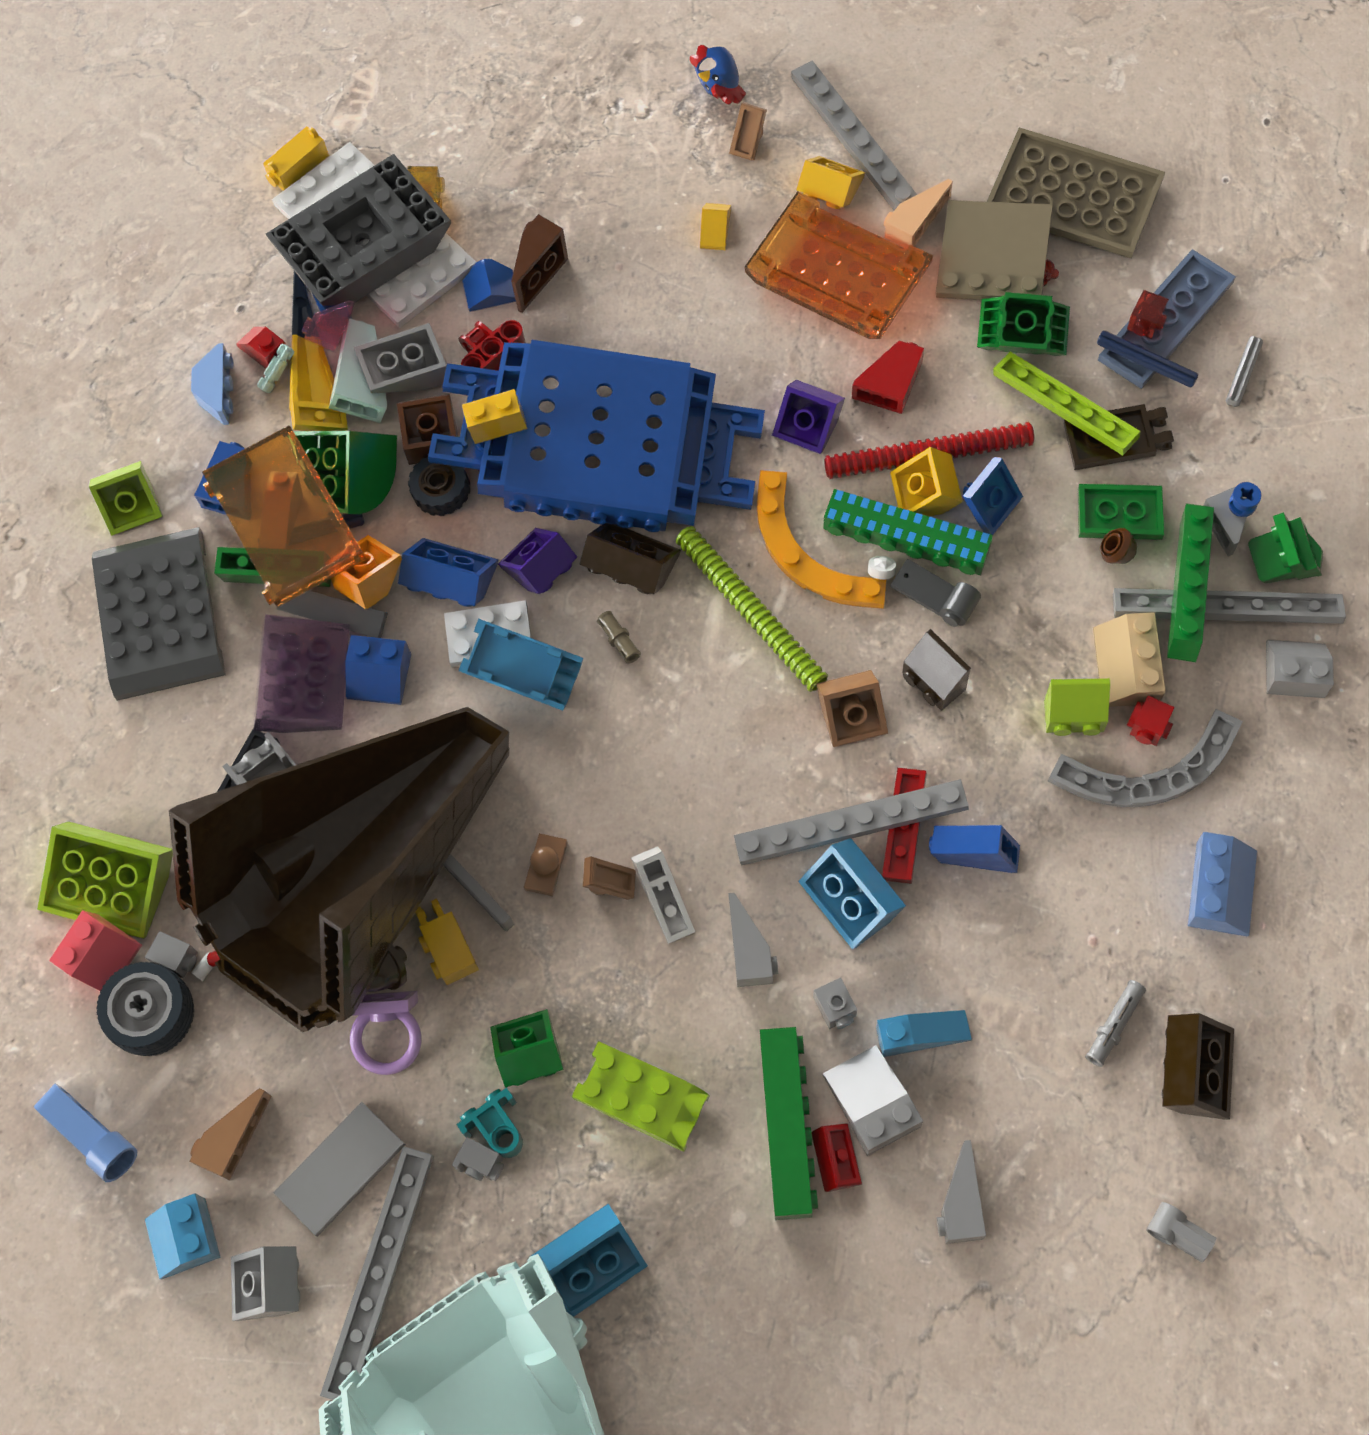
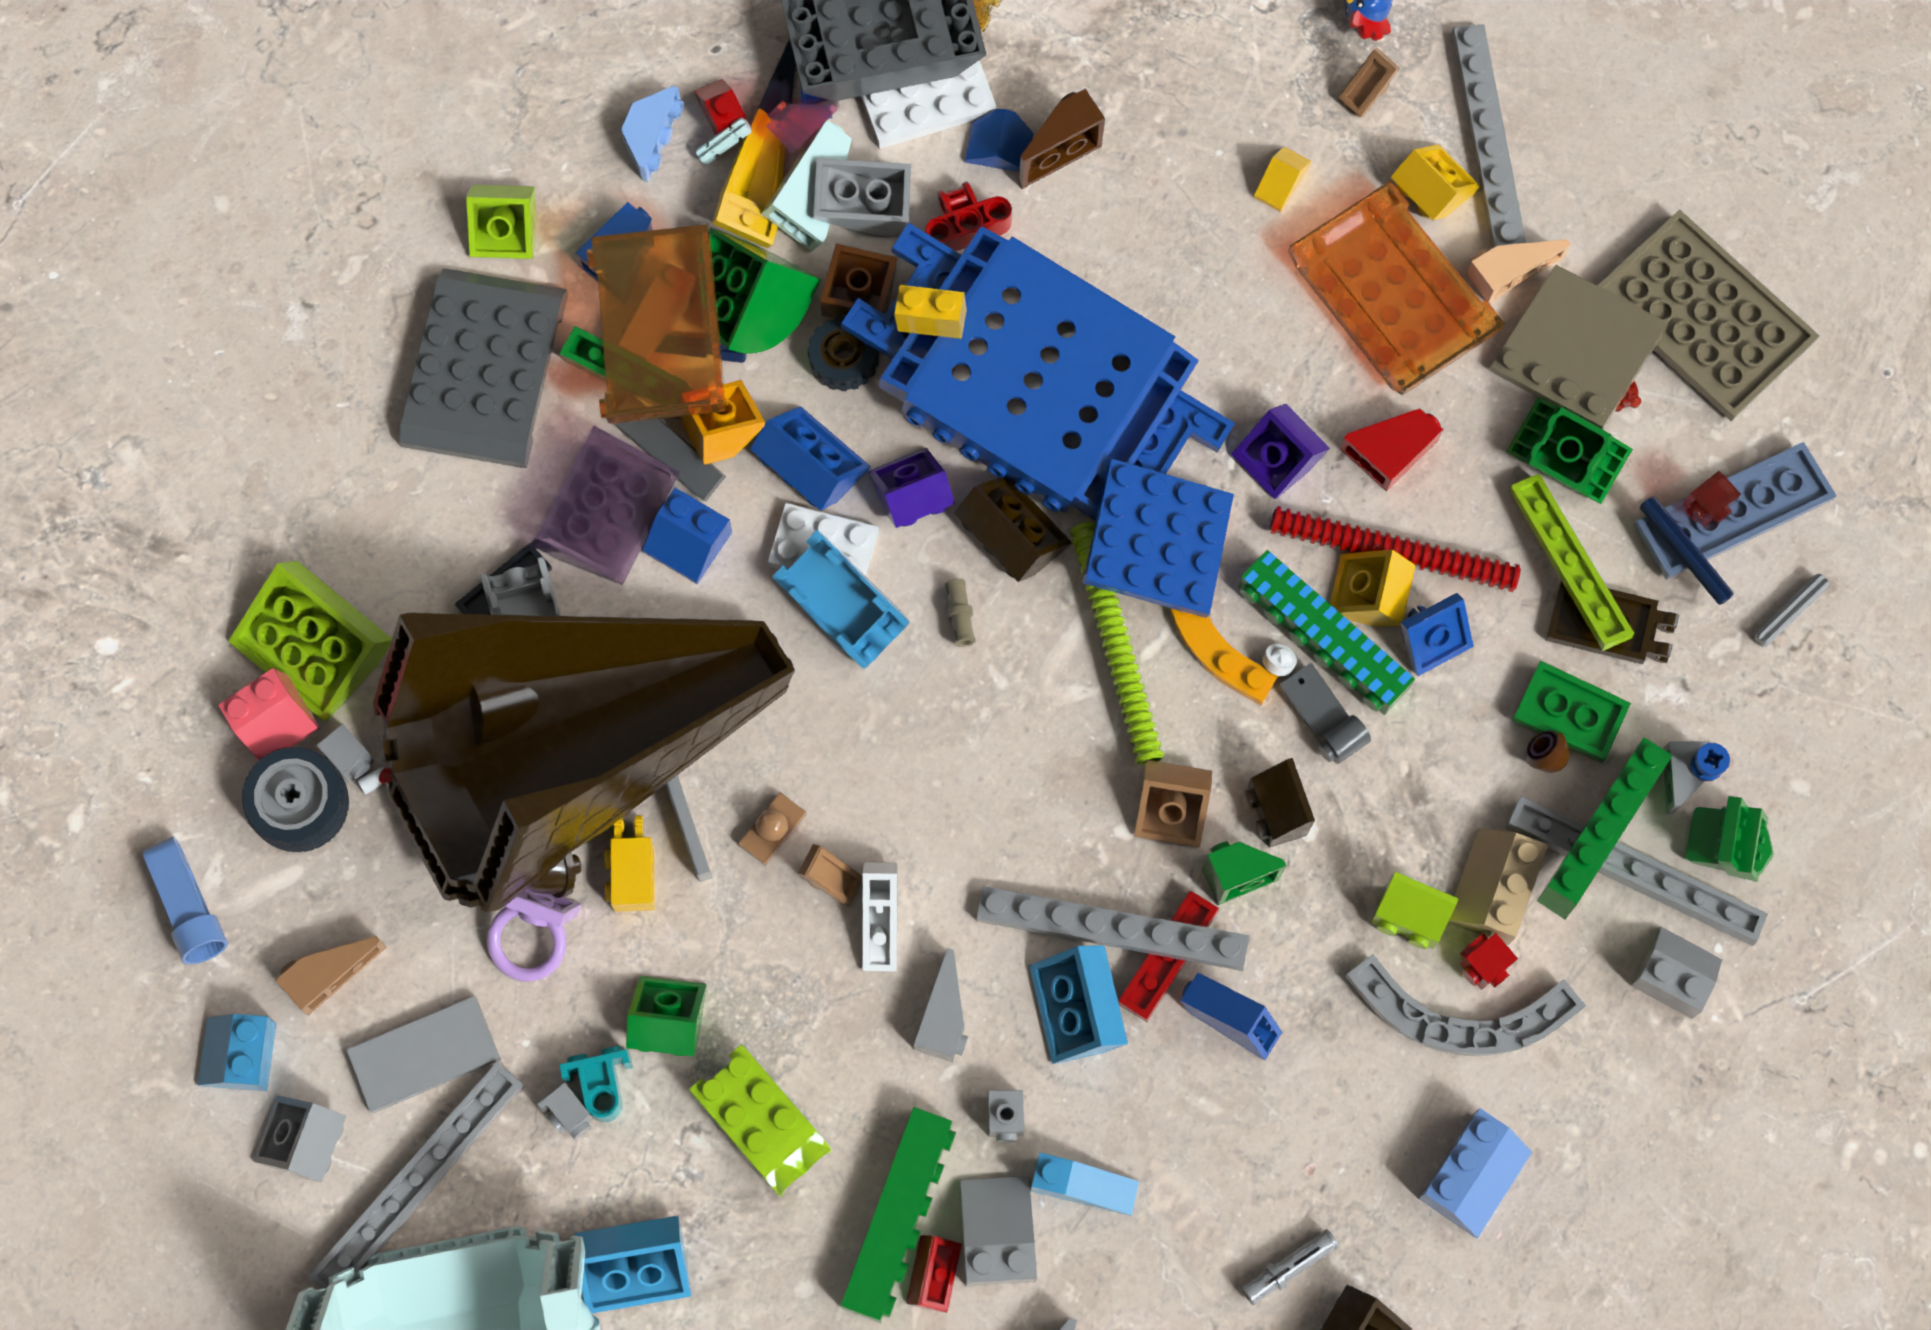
camera: 15 degrees right, 5 degrees up
(747, 515) = (1158, 538): none -> blue plate
(929, 733) = (1239, 870): none -> green slope

